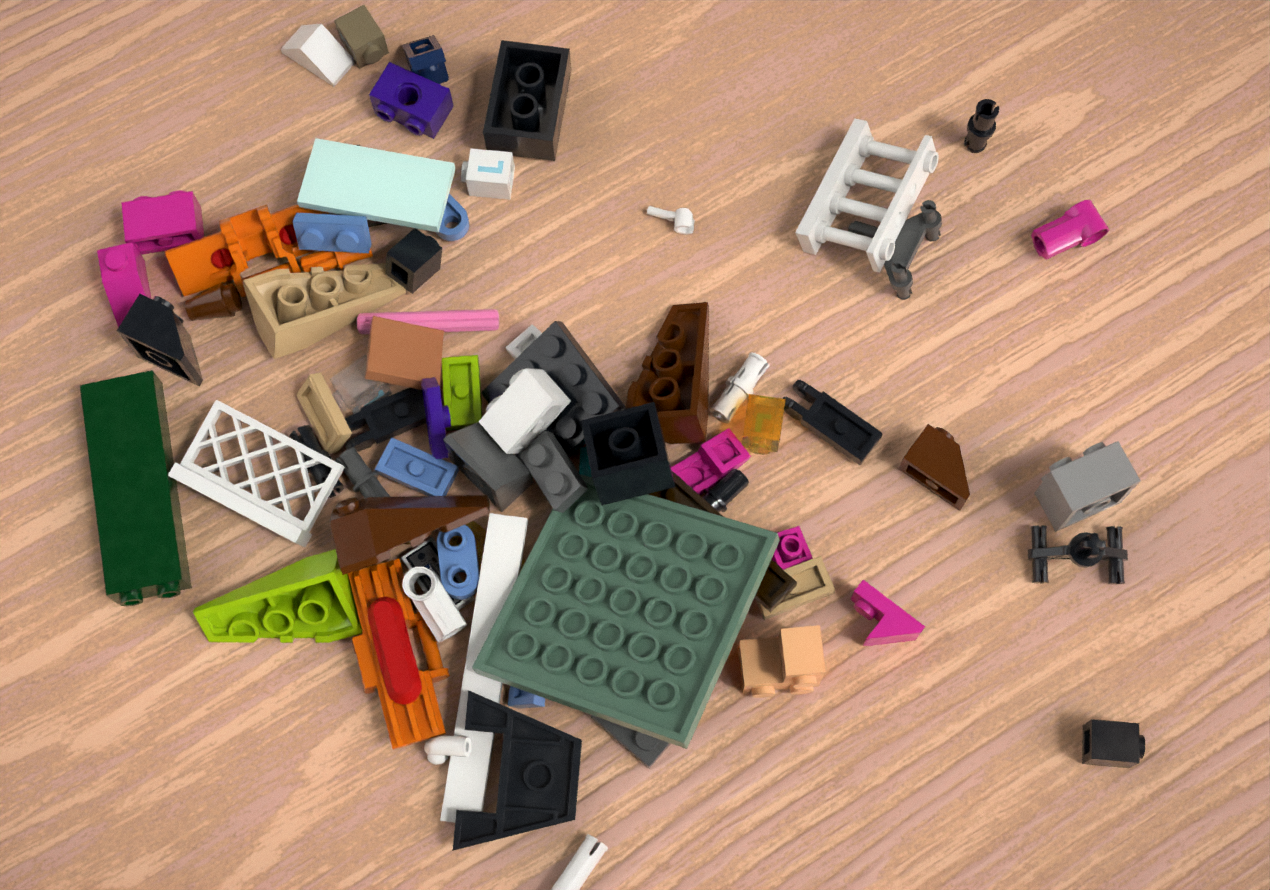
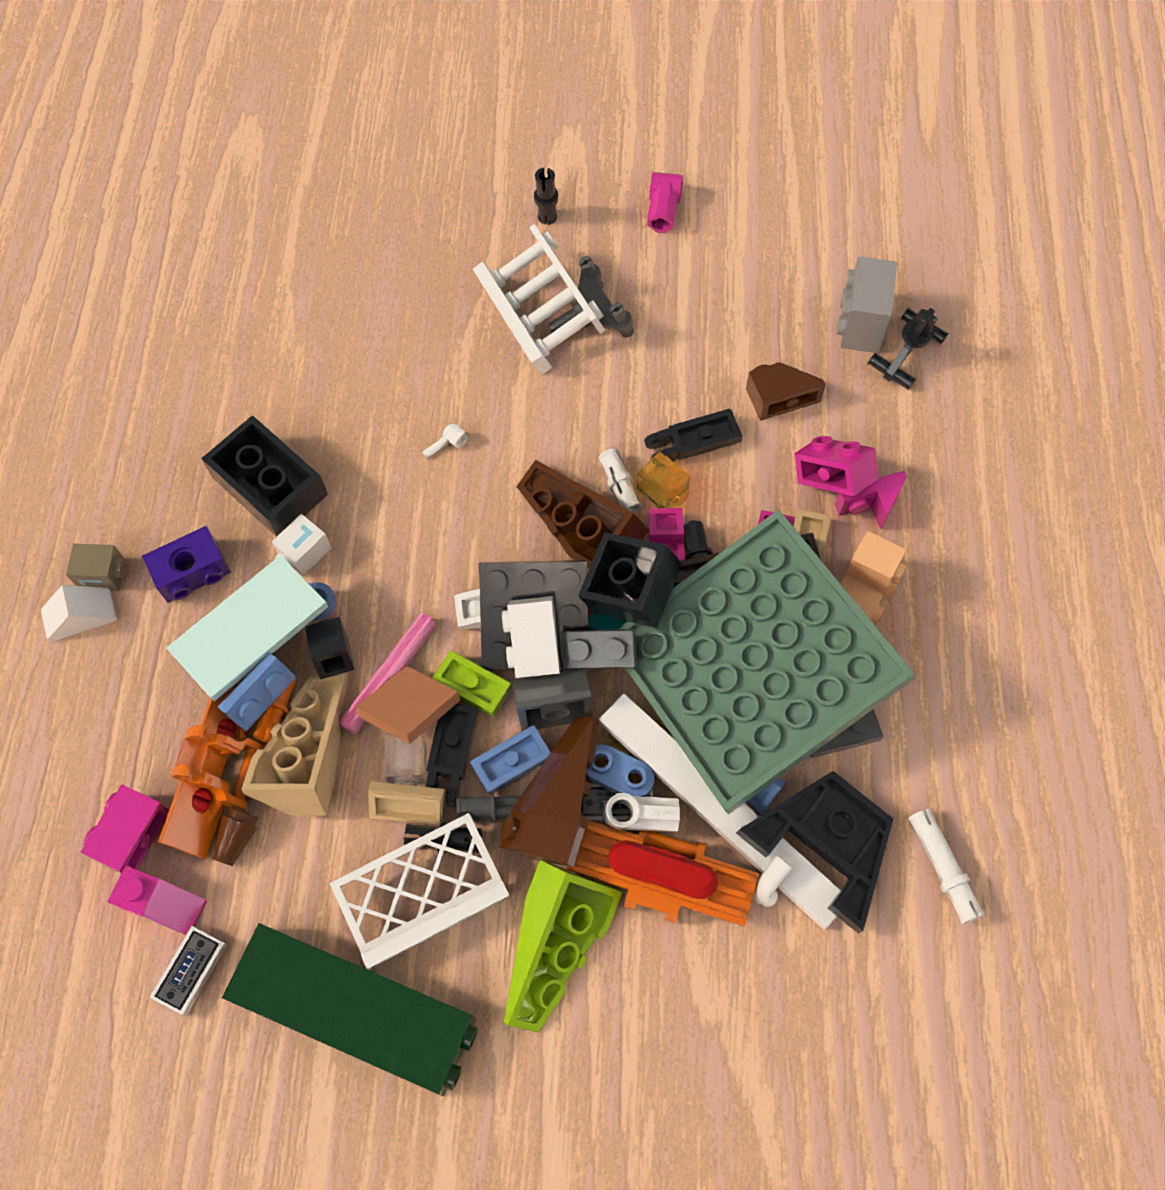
camera: 55 degrees left, 5 degrees down
(90, 349) = (188, 971): none -> tile
(160, 338) = (236, 896): black slope -> none
(427, 59) = (158, 528): dark blue slope -> none
(436, 417) = (483, 712): dark purple plate -> none
(883, 562) = (836, 465): none -> dark pink brick
(1112, 744) = (1063, 414): black brick -> none

